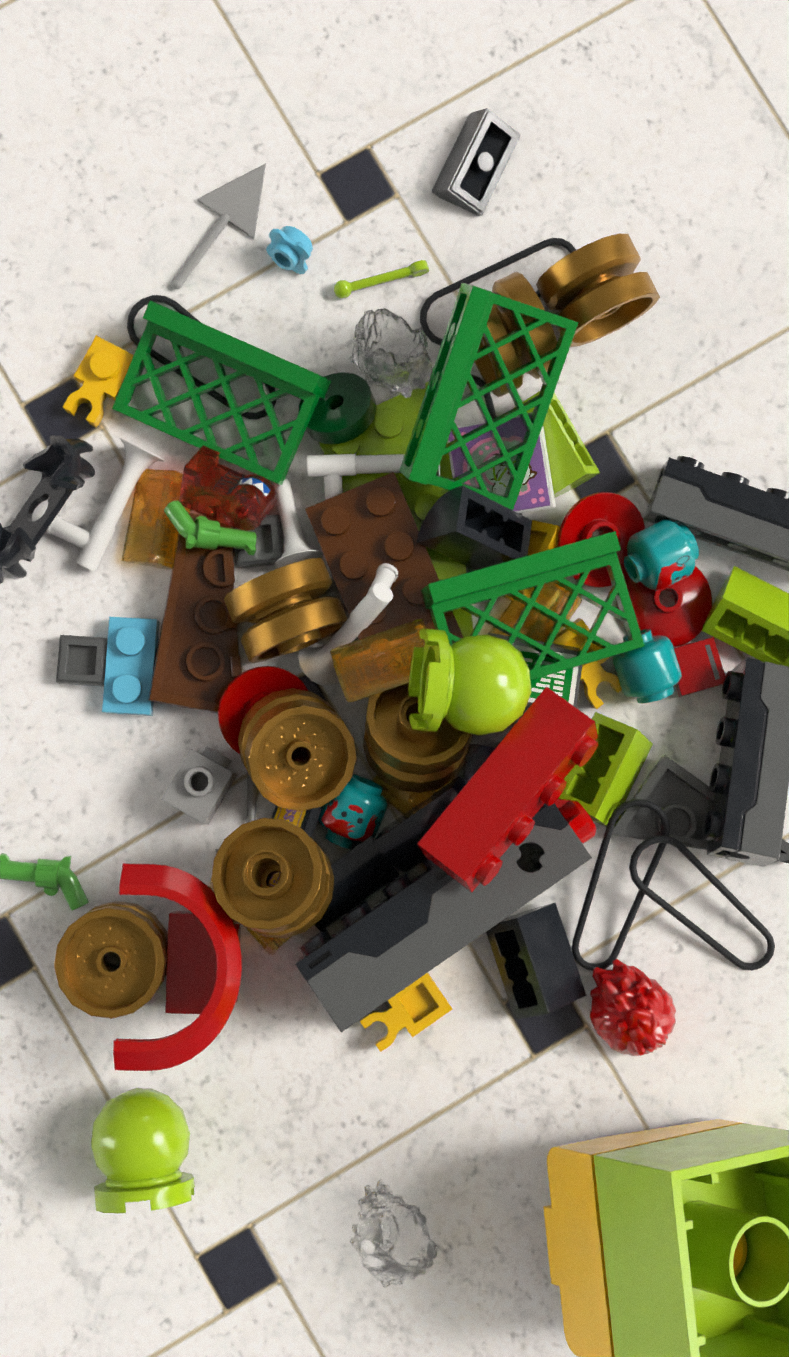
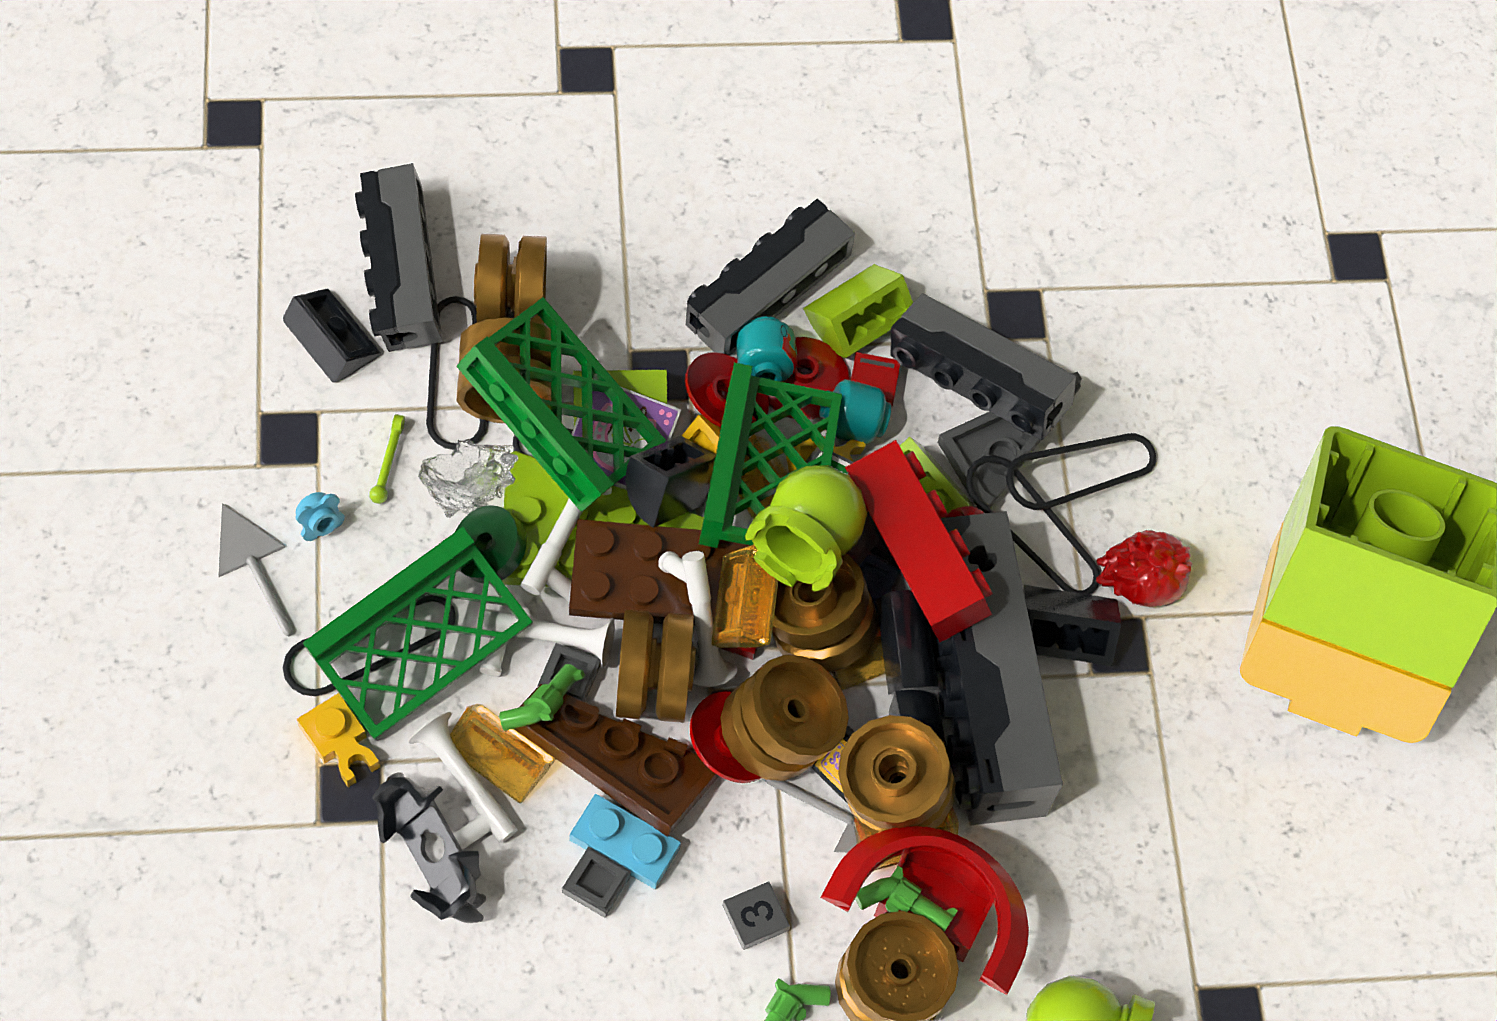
camera: 70 degrees left, 20 degrees down
(119, 810) = (756, 915): none -> dark grey tile
(177, 935) = (903, 896): none -> bright green piece
(200, 784) = (771, 826): light grey brick -> none
(225, 493) = (514, 672): clear red leg -> none
(354, 813) = (865, 698): teal head -> none
(392, 1237) = (1261, 856): clear hair -> none
(411, 1008) = (1070, 747): yellow plate -> none
(580, 177) = (399, 258): none -> piece

